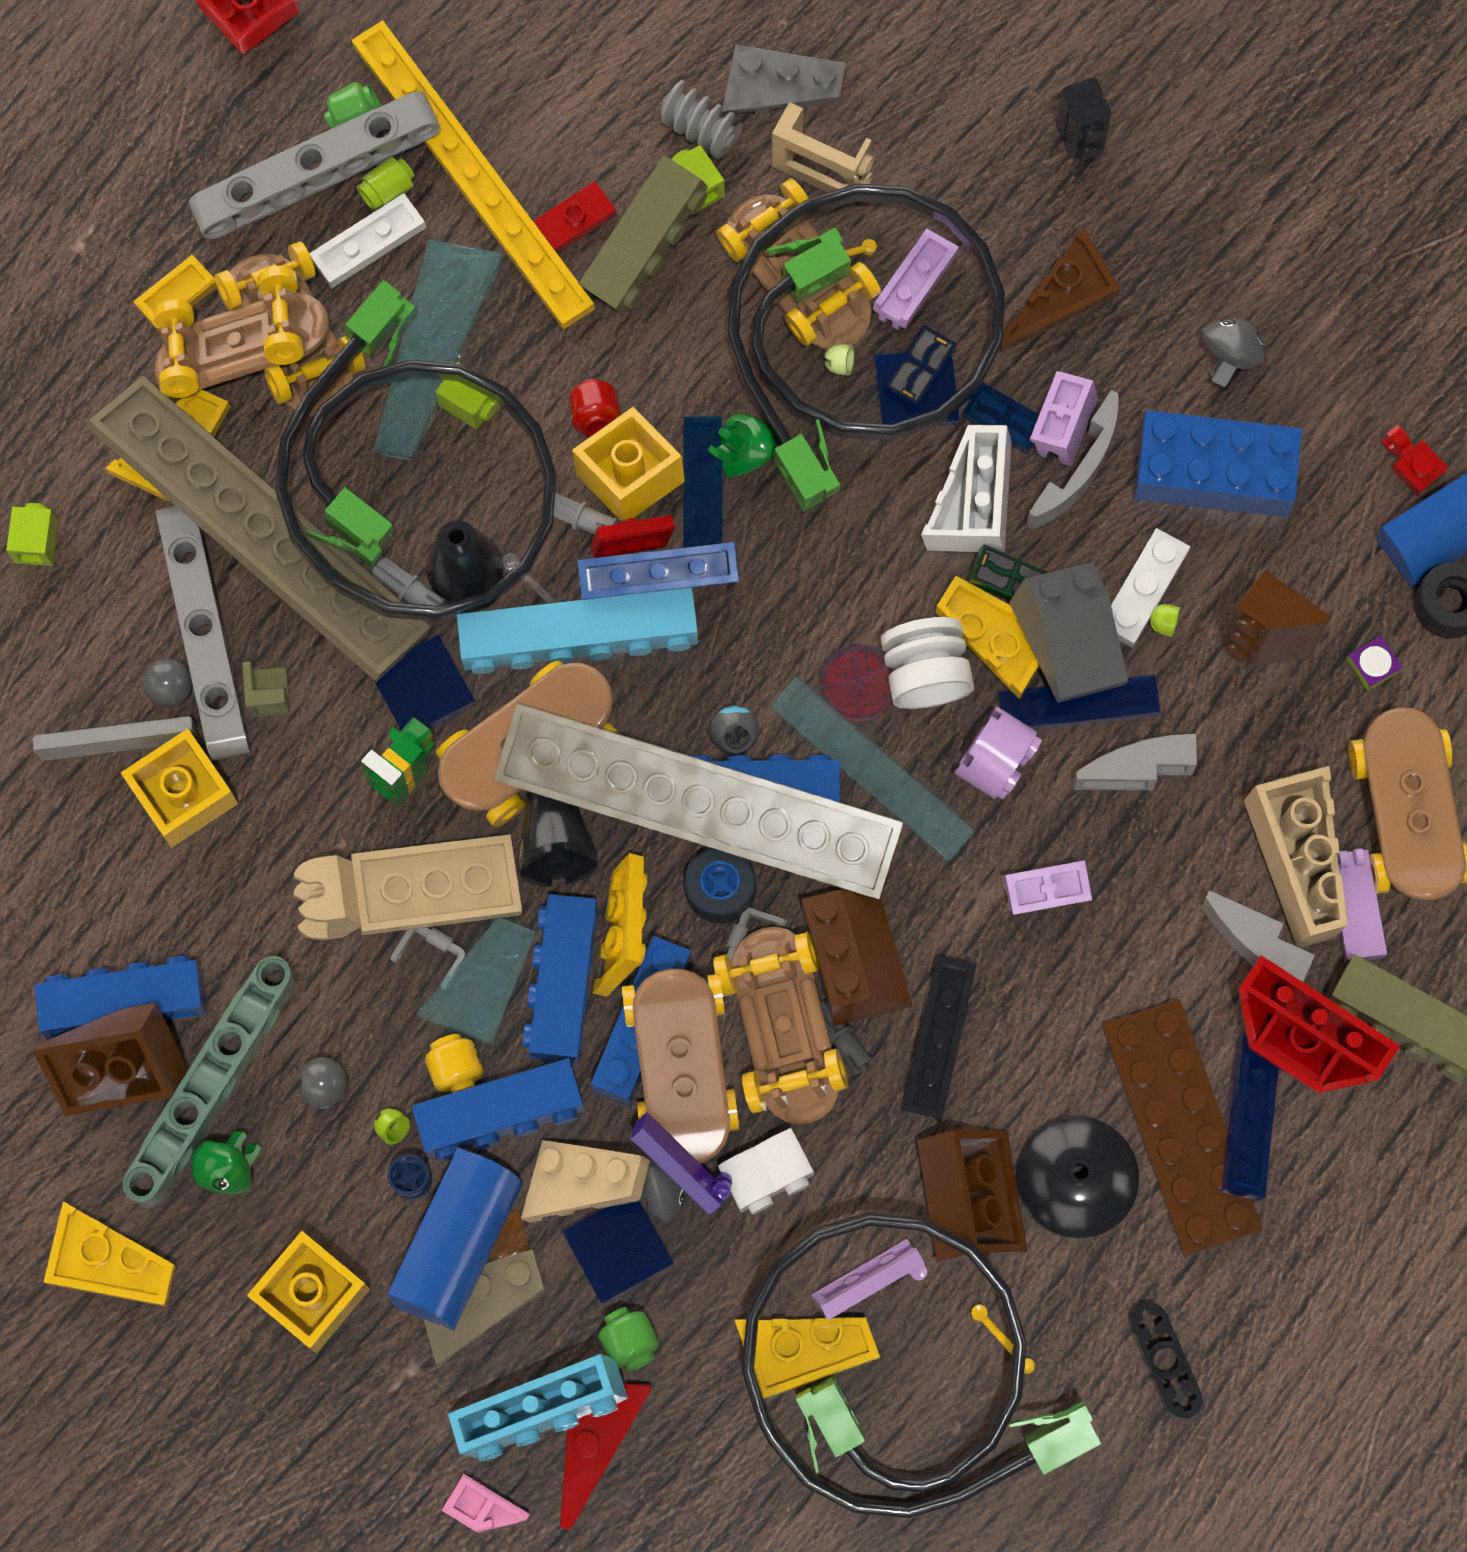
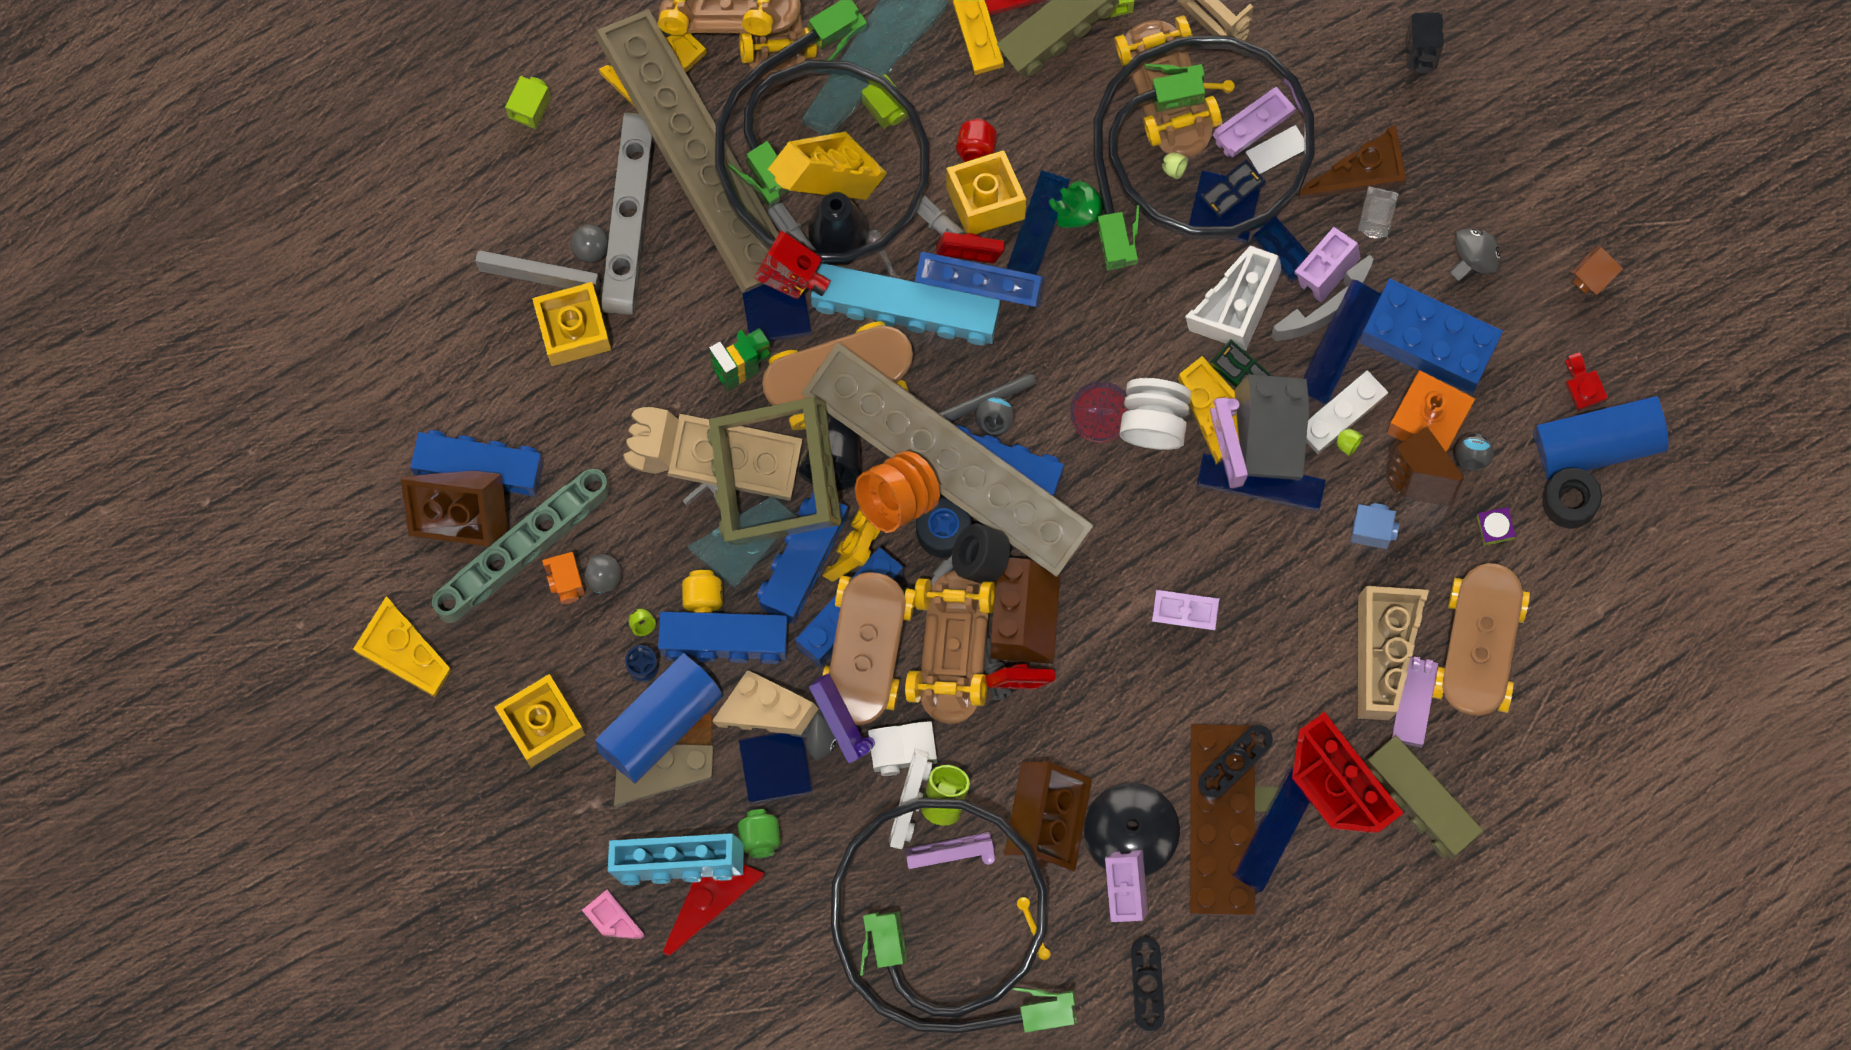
camera: 20 degrees right, 0 degrees up
(223, 1166) = (509, 610): green piece -> none
(265, 691) = (659, 273): olive panel -> none
(278, 1103) = (564, 577): none -> orange brick
(426, 631) = (791, 268): none -> red torso
(428, 494) = (827, 166): none -> yellow wedge
(550, 860) = (821, 469): none -> olive window
(653, 861) = (897, 491): none -> orange wheel
(731, 697) = (1002, 391): none -> dark grey bar
(779, 902) = (980, 553): none -> black tyre
(797, 1196) = (918, 771): none -> white plate
(808, 1350) = (886, 887): yellow wing -> none
(838, 1199) = (945, 782): none -> lime wheel
(873, 768) = (1088, 479): clear light blue tile -> none
(880, 1037) = (1020, 678): none -> red plate
(939, 1038) = (1065, 694): black plate -> none
(953, 302) = (1276, 149): none -> white sticker
(997, 753) = (1183, 498): lavender brick -> none
(1027, 666) = (1228, 440): none -> lavender hinge
(1099, 1250) = (1126, 886): none -> lavender hinge
(1100, 337) = (1377, 212): none -> clear brick
(1113, 502) = (1340, 340): none -> clear blue tile
(1139, 764) = (1288, 541): light grey slope -> none
(1177, 1021) = (1225, 785): none -> black beam
(1222, 1082) = (1264, 797): none -> olive sticker
(1233, 710) = (1374, 526): none -> medium blue brick
(1247, 546) = (1431, 405): none -> orange brick
(1255, 935) = (1329, 697): light grey slope -> none
(1318, 582) = (1474, 451): none -> dark grey piece
(1381, 323) = (1595, 271): none -> dark orange brick

